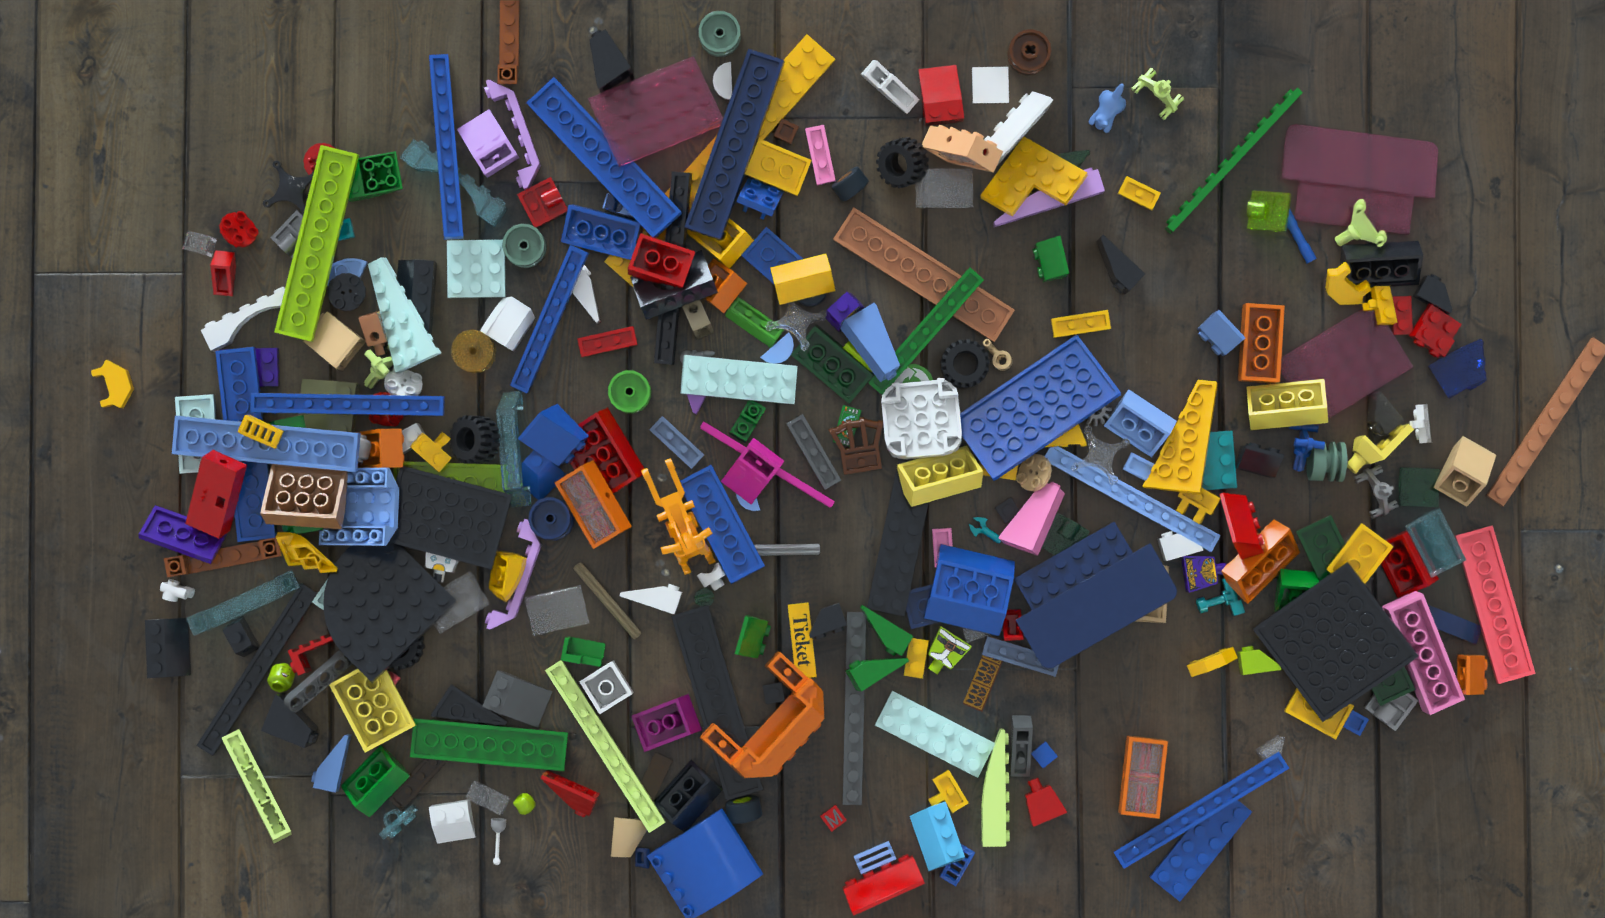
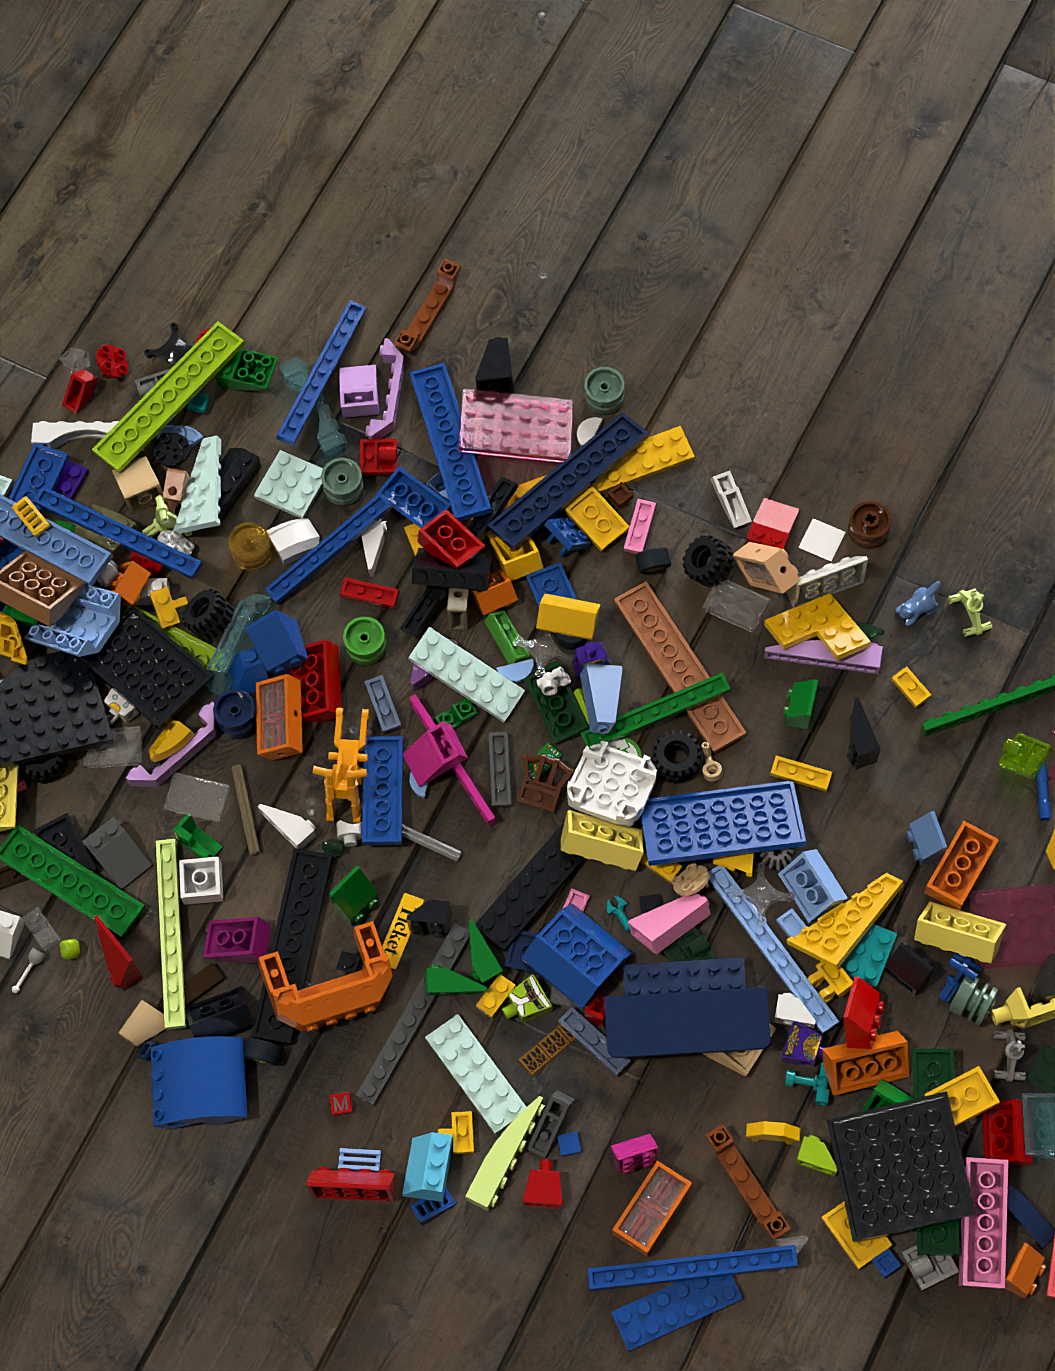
camera: 35 degrees right, 20 degrees down
(818, 350) = (551, 680): none -> white plate
(1106, 738) = (635, 1153): none -> dark pink slope
(1212, 715) = (746, 1184): none -> dark orange slope

